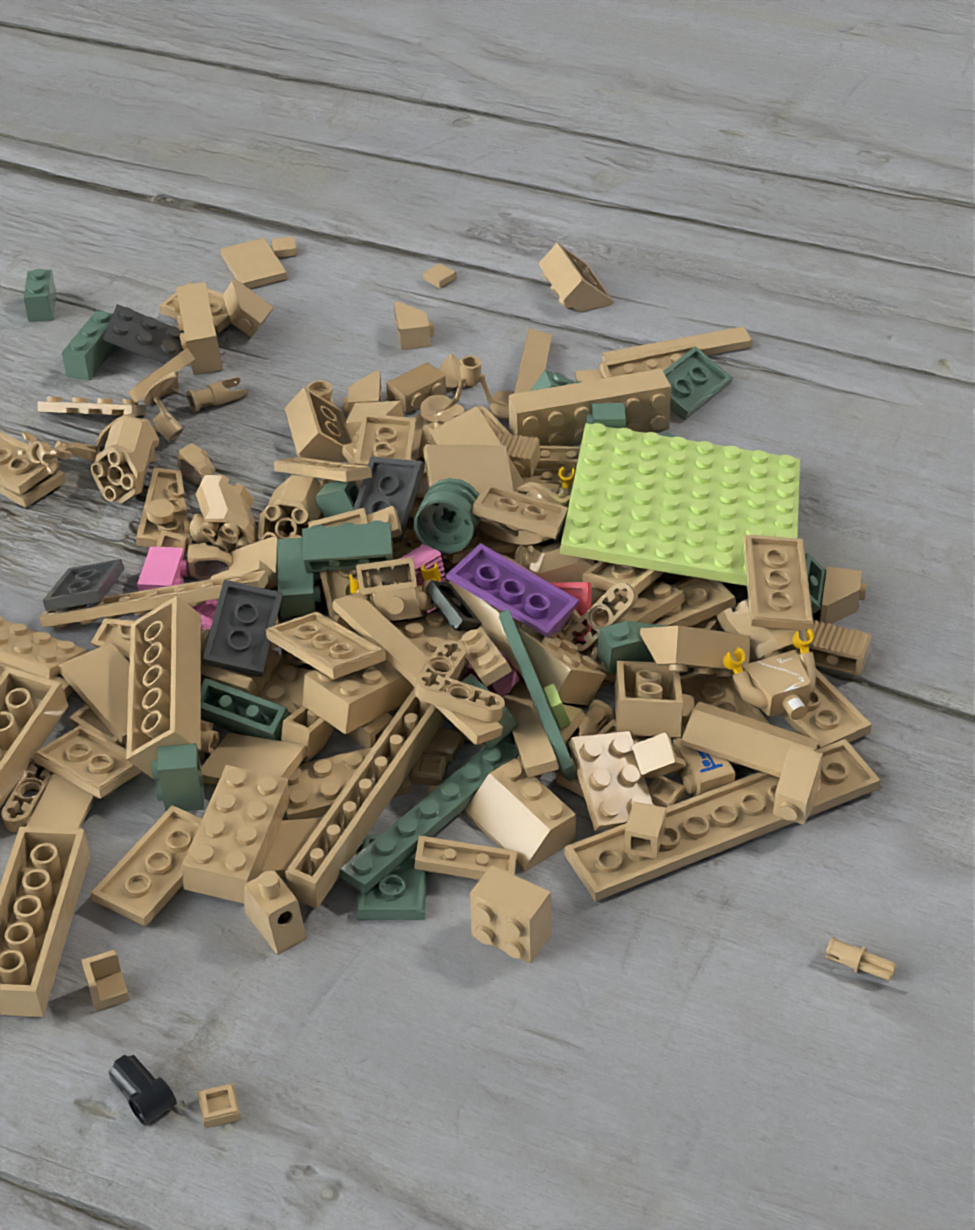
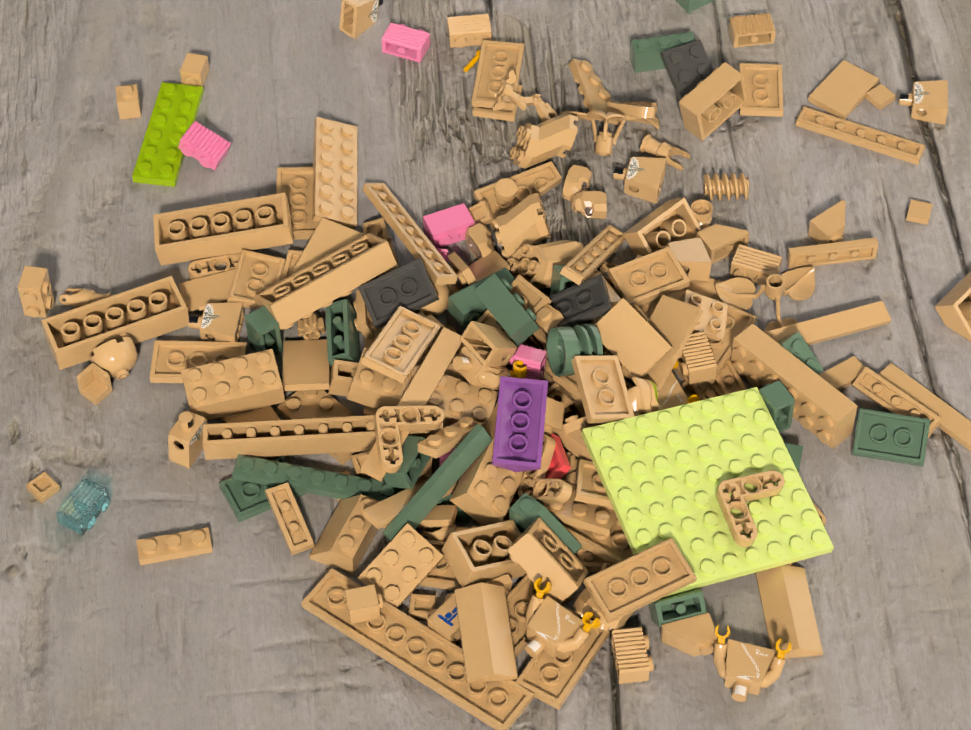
camera: 60 degrees right, 10 degrees up
(83, 585) = (405, 189): dark grey plate -> none
(87, 937) = (116, 357): none -> tan cylinder
(120, 820) = (219, 322): none -> tan torso
(125, 284) = (751, 30): none -> tan brick
(144, 1093) = (28, 448): black piece -> none
(237, 417) = (642, 177): none -> tan torso
(237, 462) = (590, 204): none -> tan rock
(245, 308) = (767, 118): tan slope -> none
(292, 1065) = (83, 506): none -> clear light blue brick
(302, 369) = (725, 186): none -> tan piece
(318, 274) = (860, 135): none -> tan tile
(322, 220) = (927, 101): none -> tan torso
(417, 995) = (174, 546): none -> tan plate
(445, 335) = (832, 253): none -> tan plate
(453, 606) = (487, 402): pearl dark grey plate -> none
(510, 914) = (248, 561): tan brick -> none
(556, 706) = (440, 503): yellowish green tile -> none
(657, 756) = (430, 581): panel -> none
(713, 484) = (741, 496): none -> tan beam
(798, 784) = (446, 676): tan slope -> none
(850, 527) = (789, 611): none -> tan slope
(902, 569) = (747, 666): none -> tan torso

